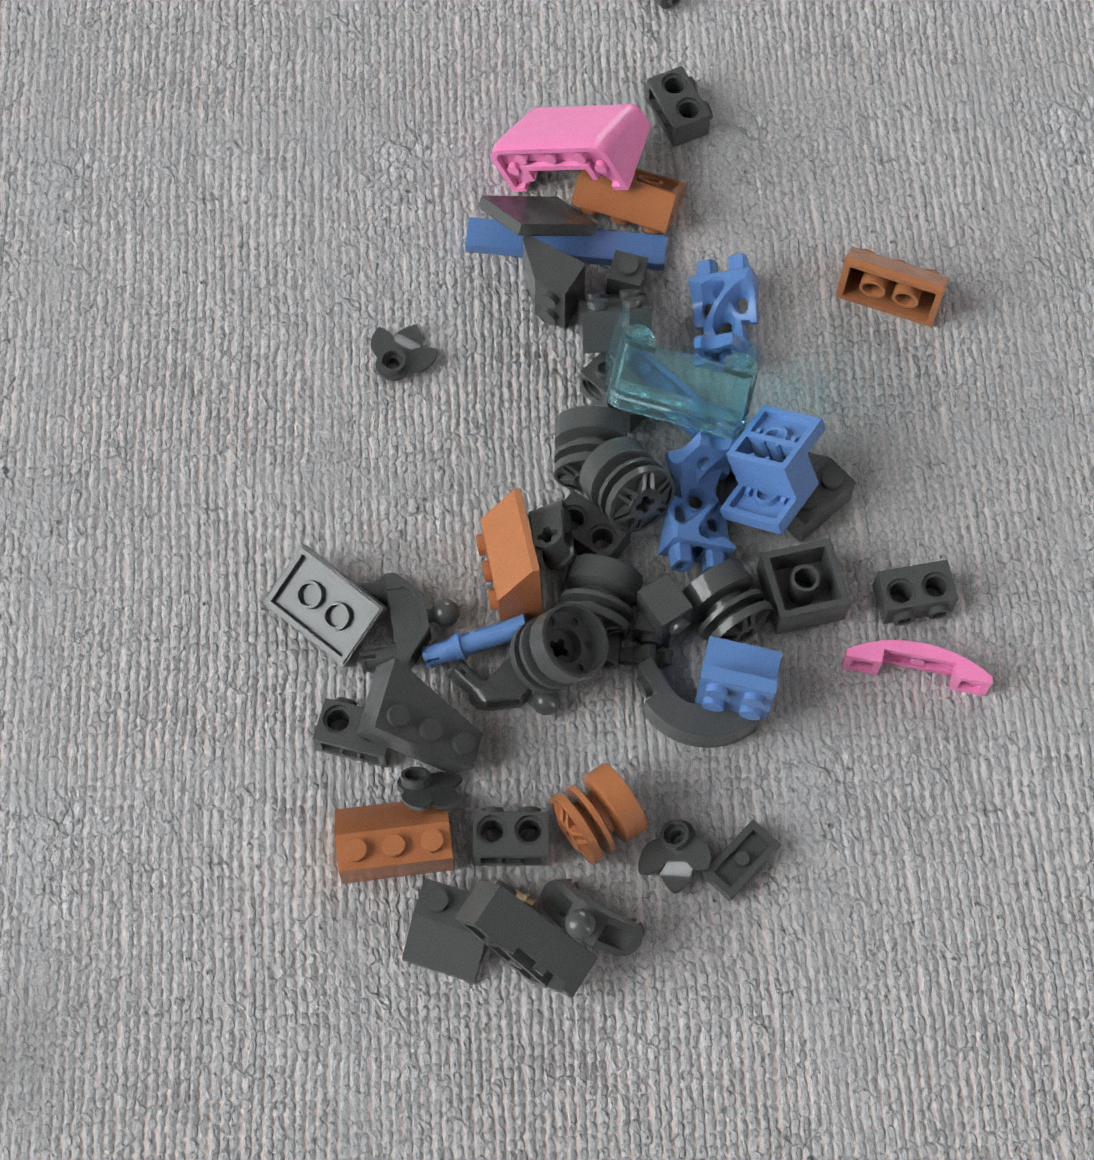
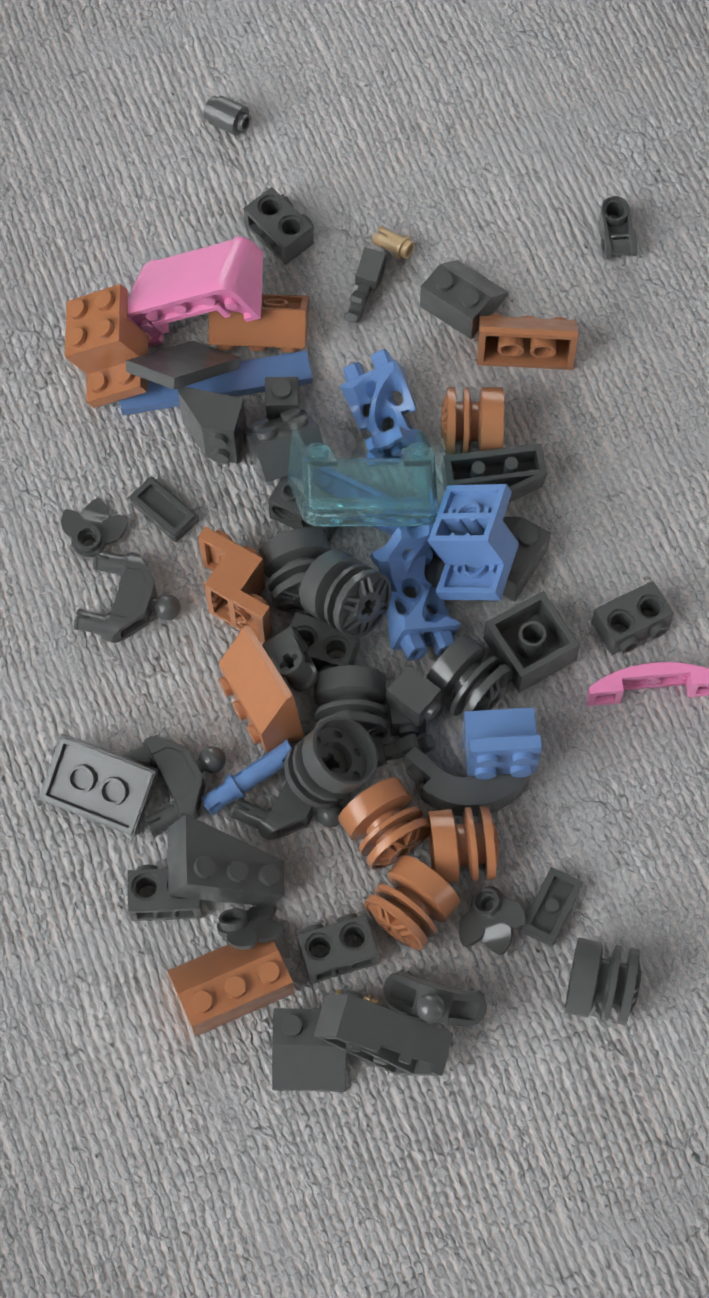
camera: 15 degrees left, 0 degrees up
(417, 435) = (133, 602): none -> dark grey connector
(462, 171) = (101, 341): none -> nougat bracket
(476, 353) = (163, 509): none -> dark grey tile
(521, 444) = (235, 583): none -> nougat bracket
(596, 725) = (384, 823): none -> nougat wheel
(668, 769) = (463, 844): none -> nougat wheel
(751, 181) = (369, 278): none -> dark grey piece
(768, 950) = (603, 981): none -> dark grey wheel
(788, 153) = (399, 245): none -> tan pin
(812, 350) = (473, 420): none -> nougat wheel
(838, 221) = (460, 296): none -> dark grey slope
(843, 408) = (518, 467): none -> dark grey wedge
(1018, 202) = (616, 234): none -> dark grey piece

